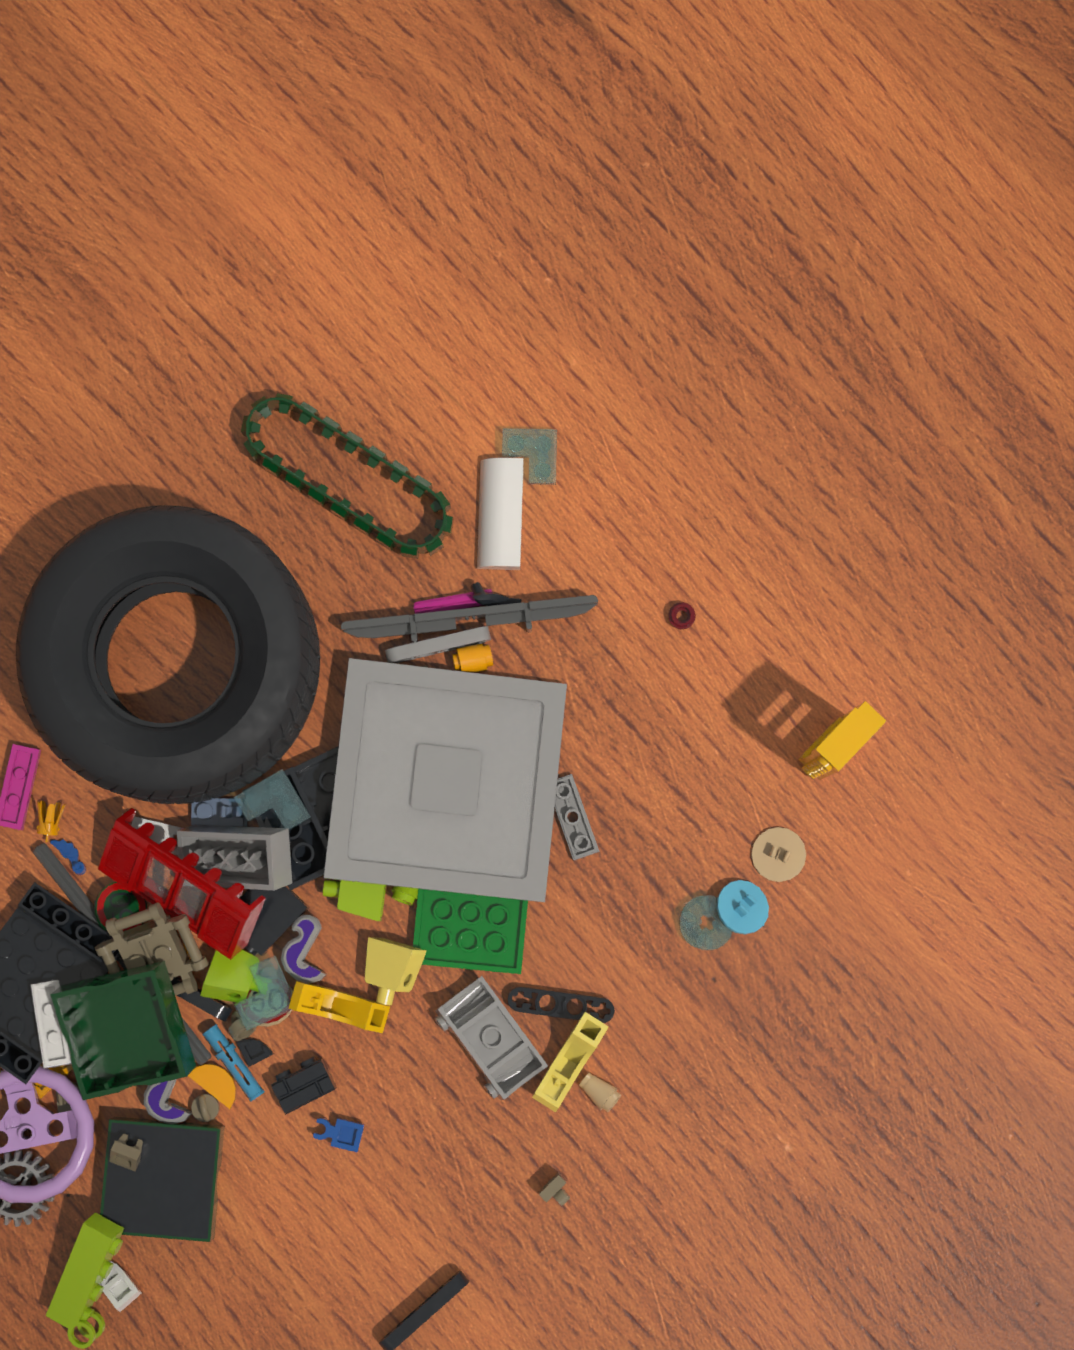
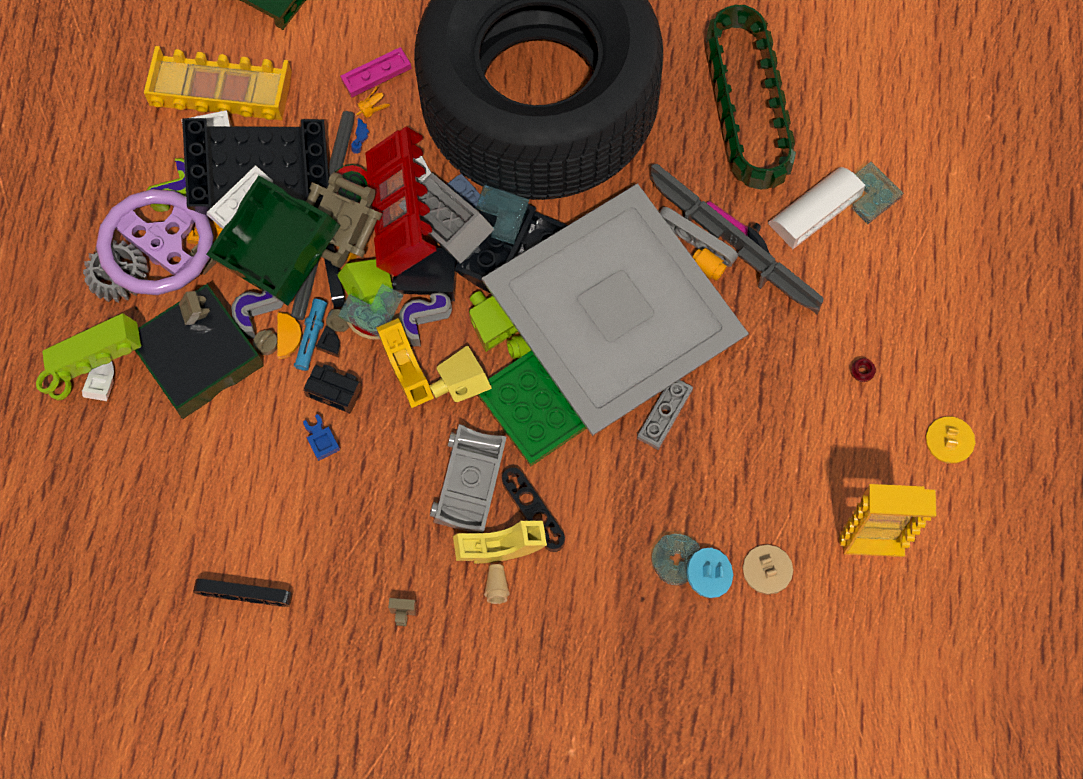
camera: 50 degrees right, 15 degrees down
(802, 600) = (950, 440): none -> yellow piece

